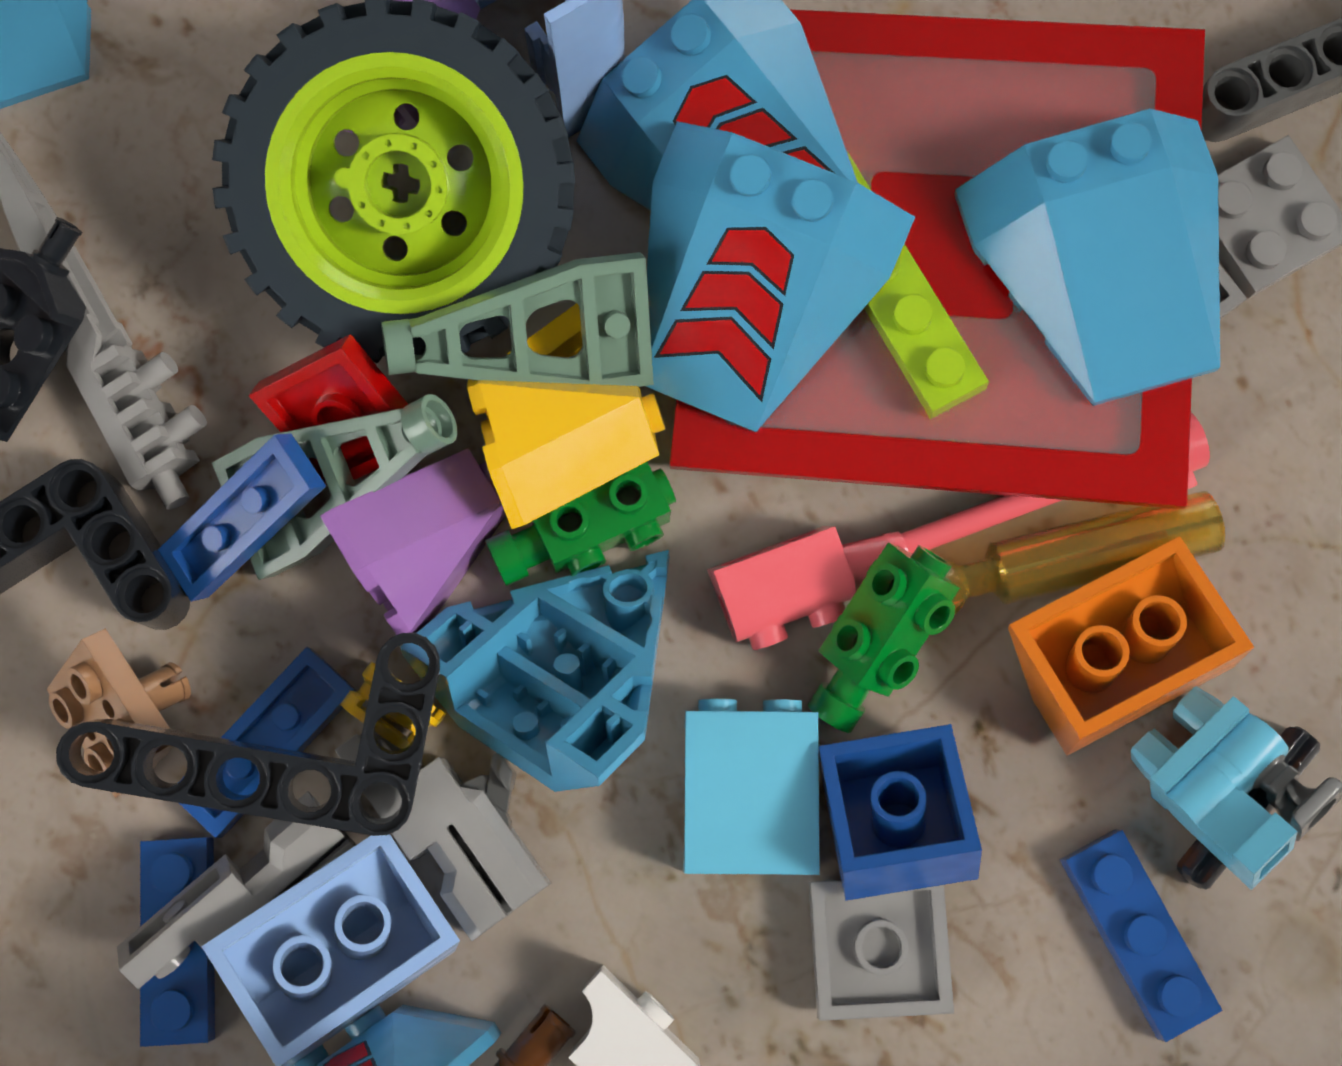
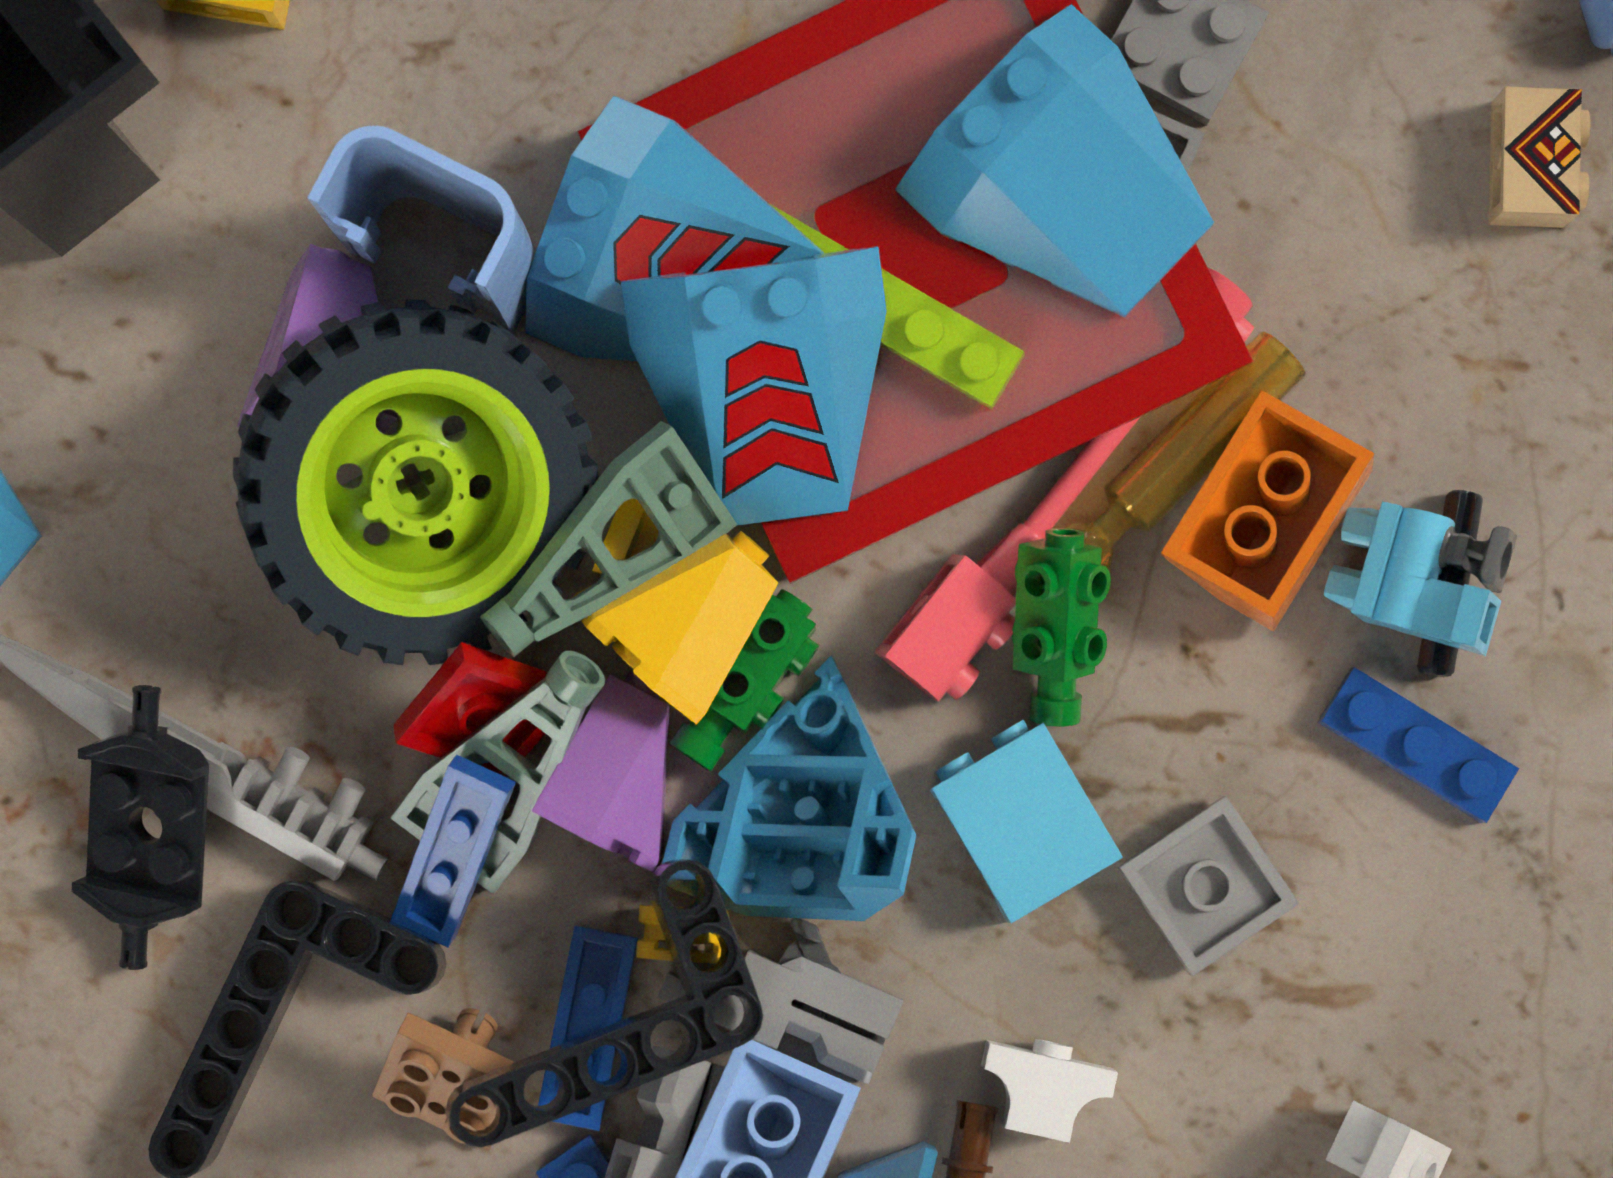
camera: 25 degrees left, 5 degrees up
(900, 812) = (1159, 766): blue brick -> none

